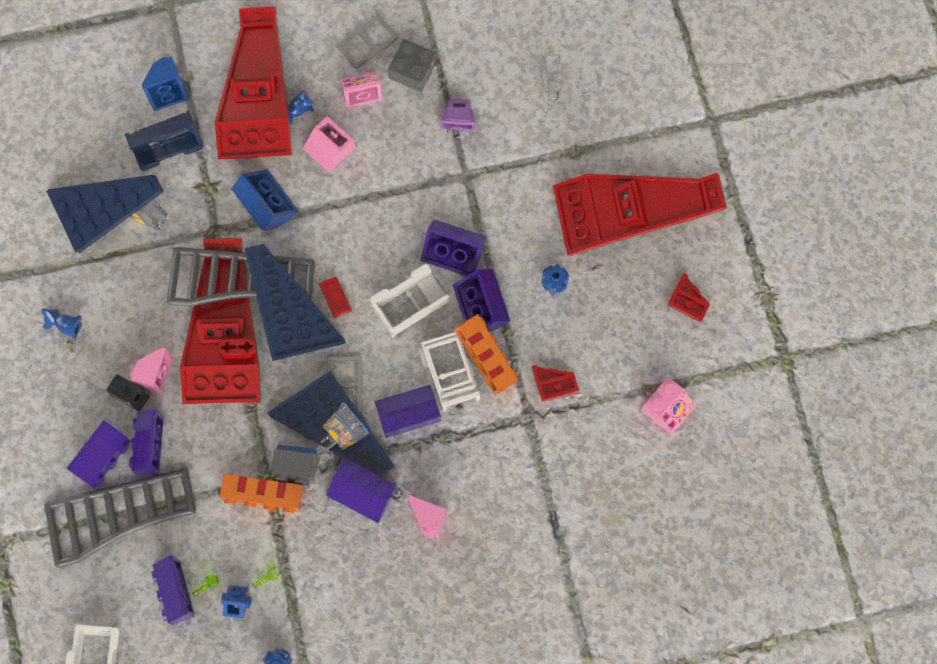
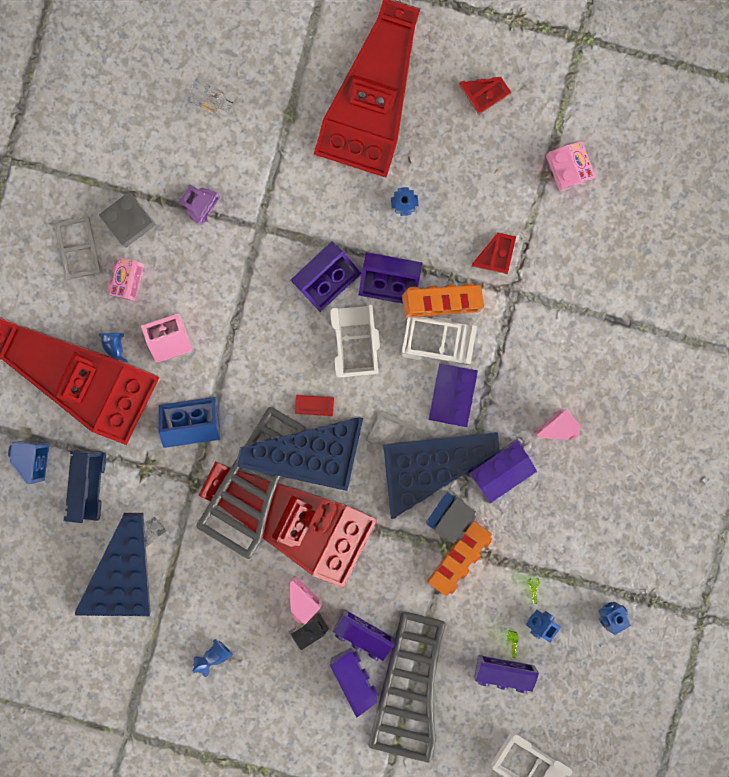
camera: 65 degrees left, 15 degrees up
(343, 429) = (444, 460): clear torso -> none

